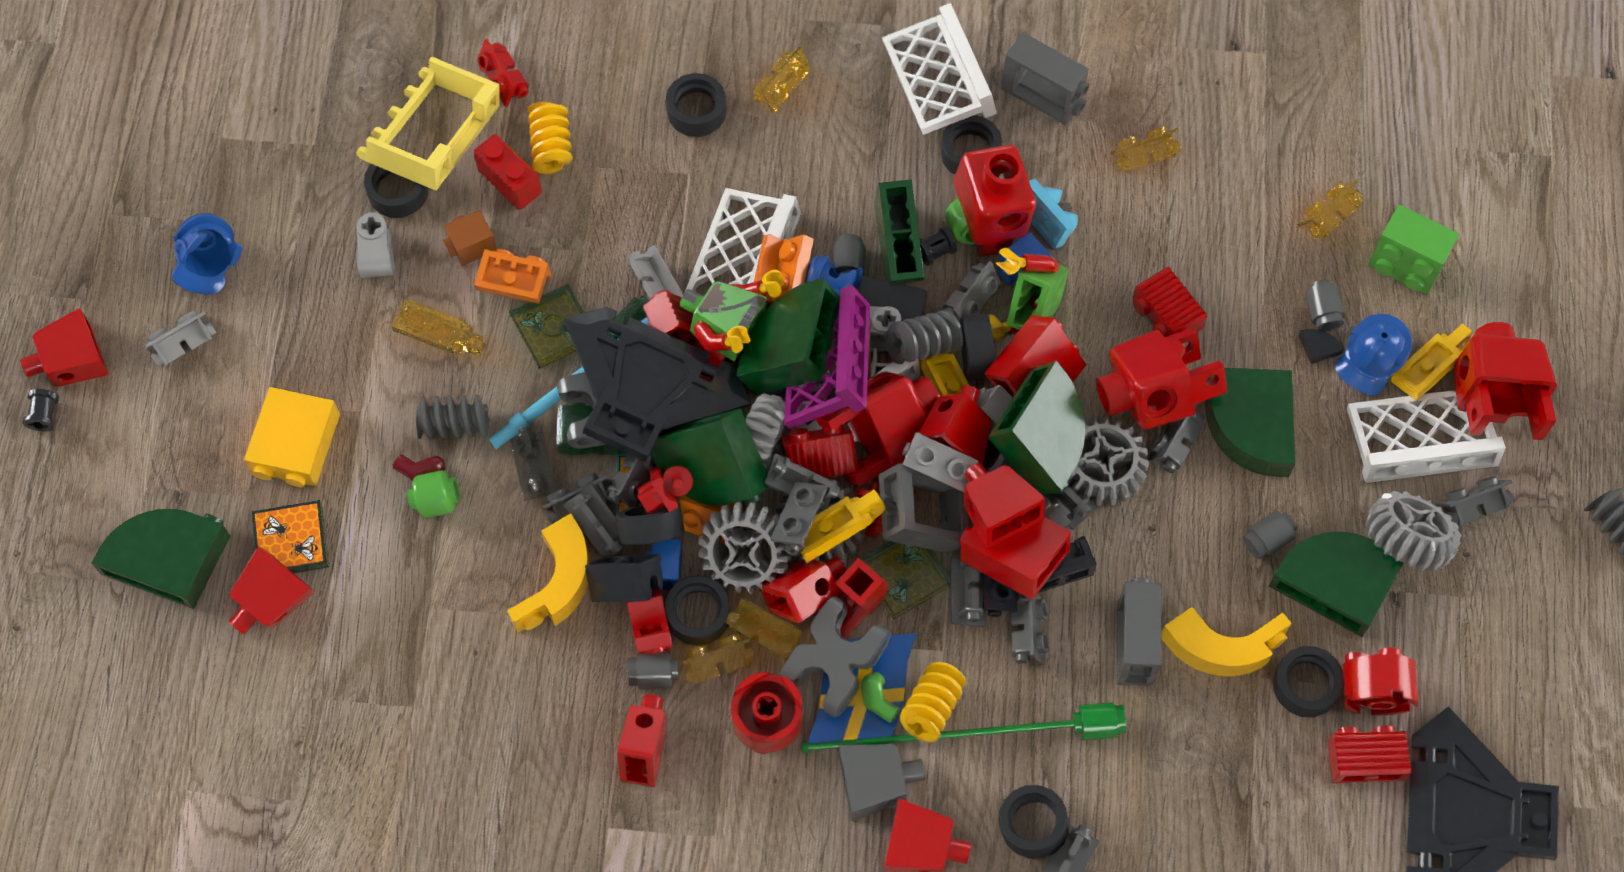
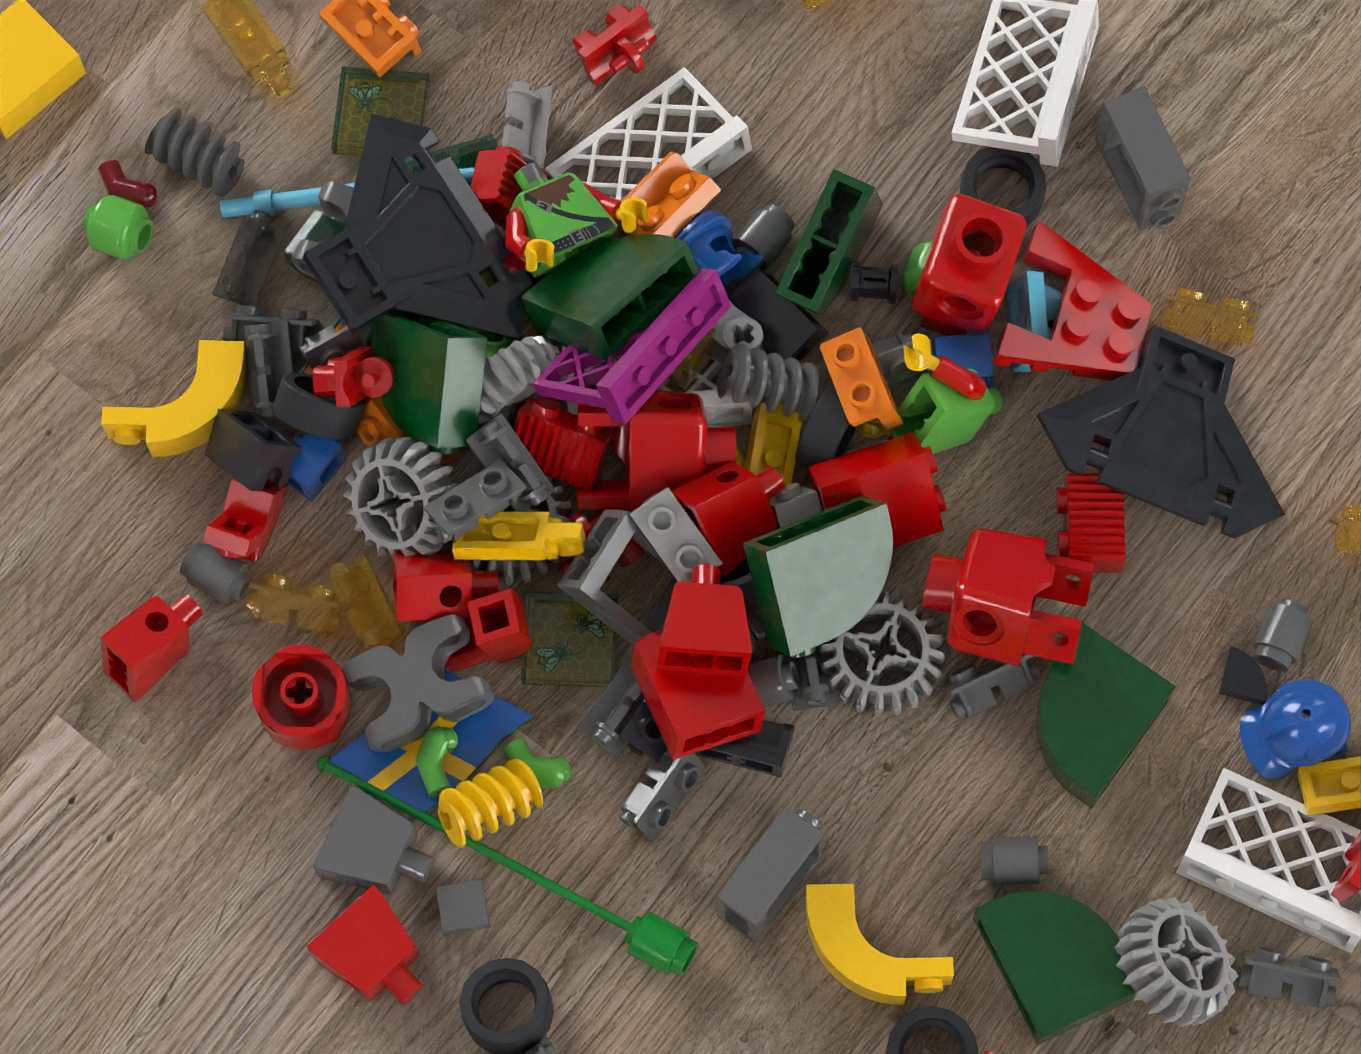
camera: 35 degrees right, 5 degrees up
(678, 197) = (618, 45): none -> red hips
(691, 585) = (298, 505): black tyre -> none
(955, 657) = (548, 771): none -> bright green arm
(958, 779) = (462, 907): none -> dark grey tile
(980, 301) = (860, 380): none -> orange bracket
(1085, 190) = (1096, 322): none -> wing
(1177, 230) = (1167, 437): none -> black plate

